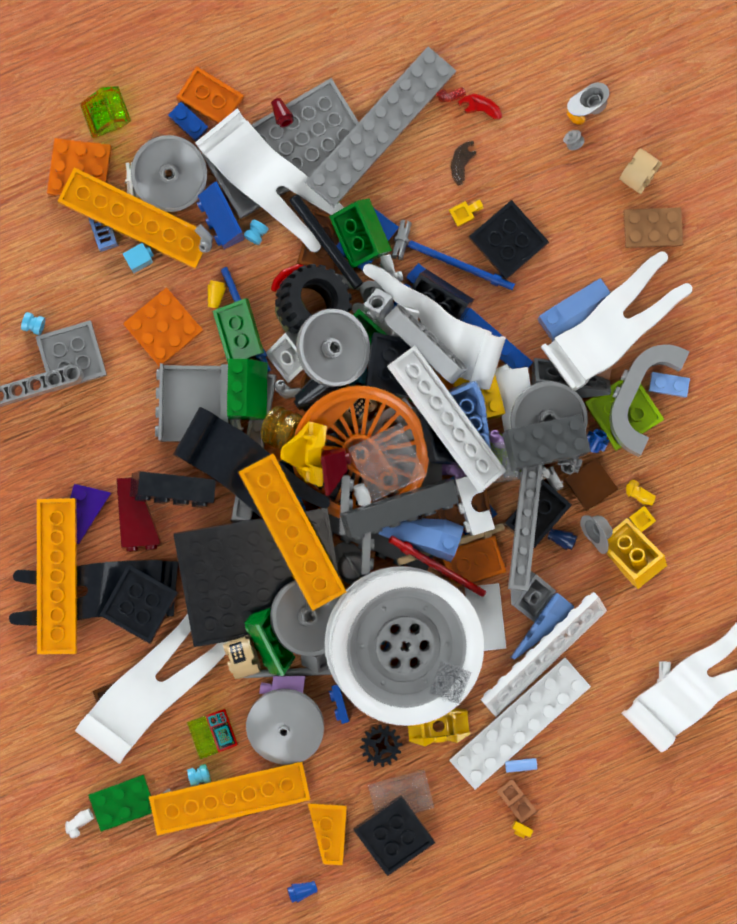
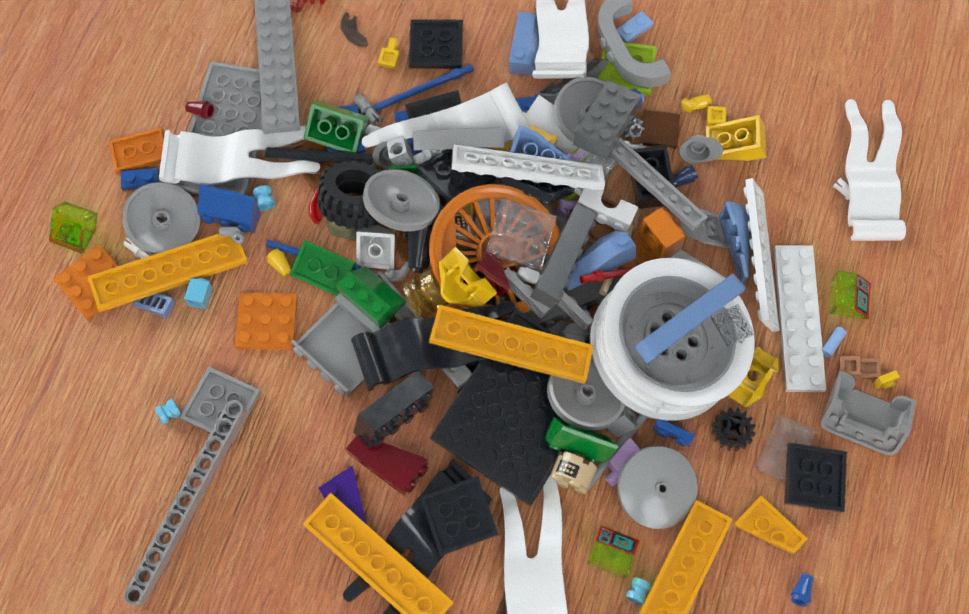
camera: 45 degrees left, 15 degrees down
(423, 648) = (689, 318): none -> medium blue beam
(479, 836) = (867, 418): none -> light grey windscreen
(489, 565) = (661, 234): none -> orange brick
(571, 749) = (849, 295): none -> clear neon green slope

